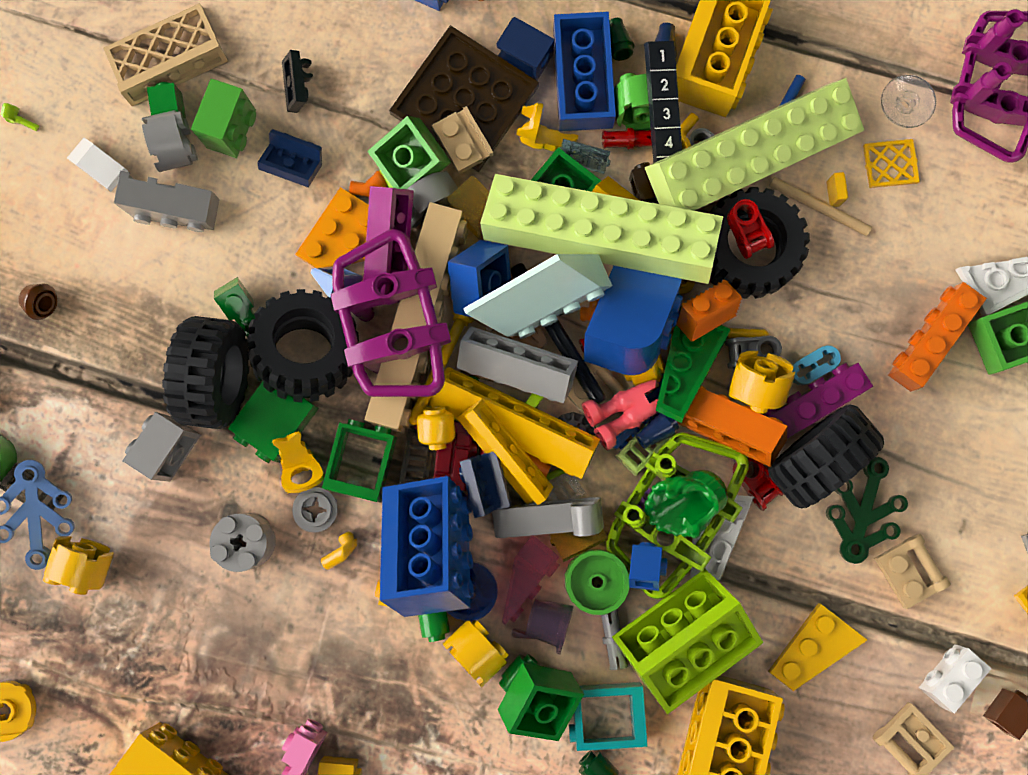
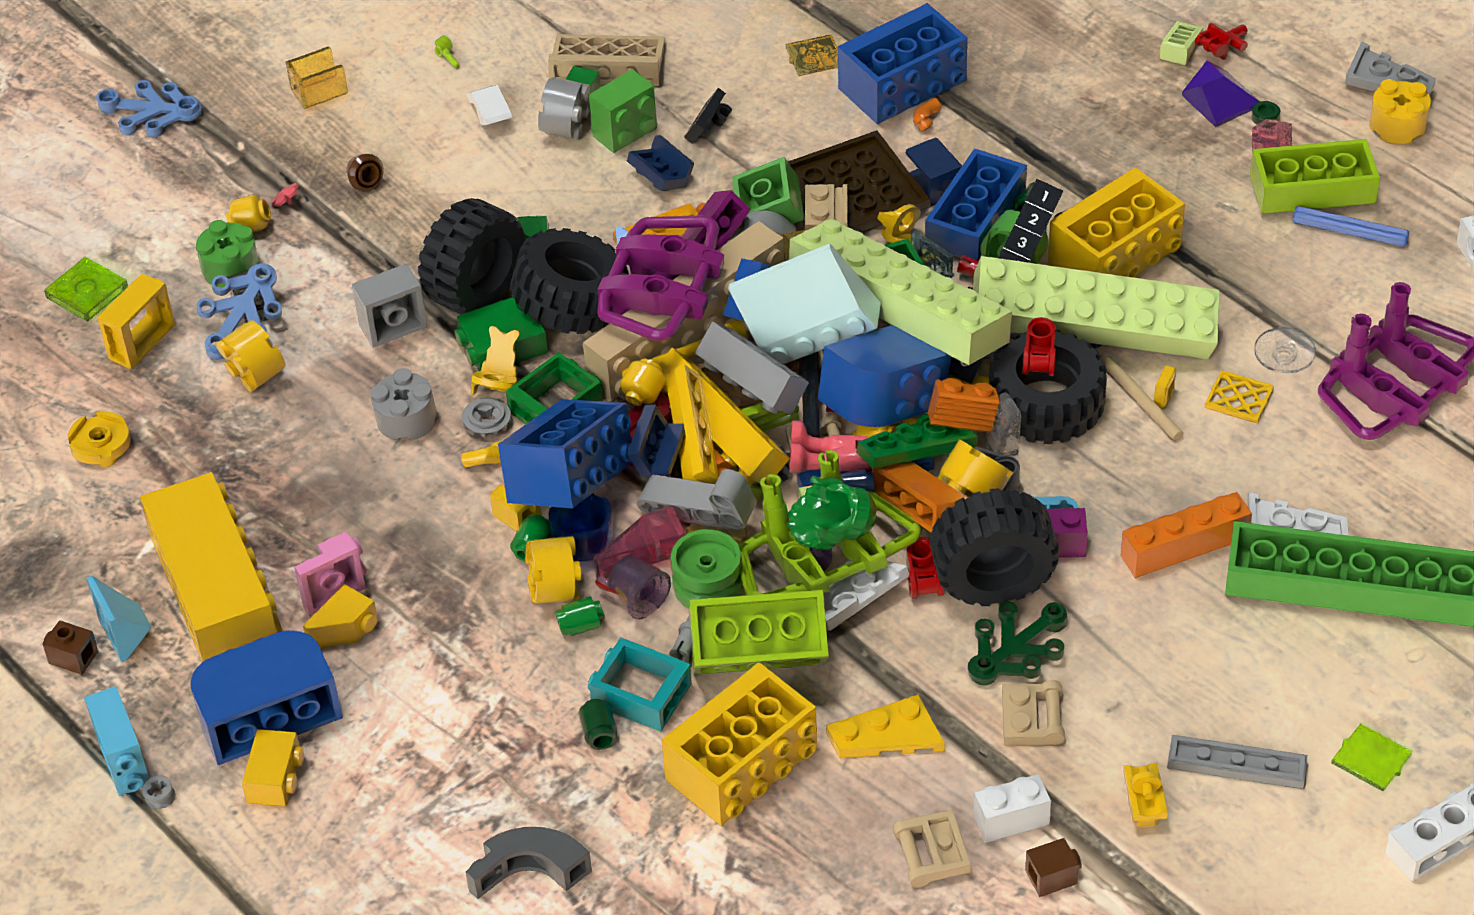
camera: 30 degrees right, 35 degrees down
(166, 203) = (526, 150): light grey wedge -> none
(540, 702) = (583, 623): green brick -> none
(647, 566) = (758, 556): blue brick -> none
(749, 308) = (1006, 429): none -> clear slope

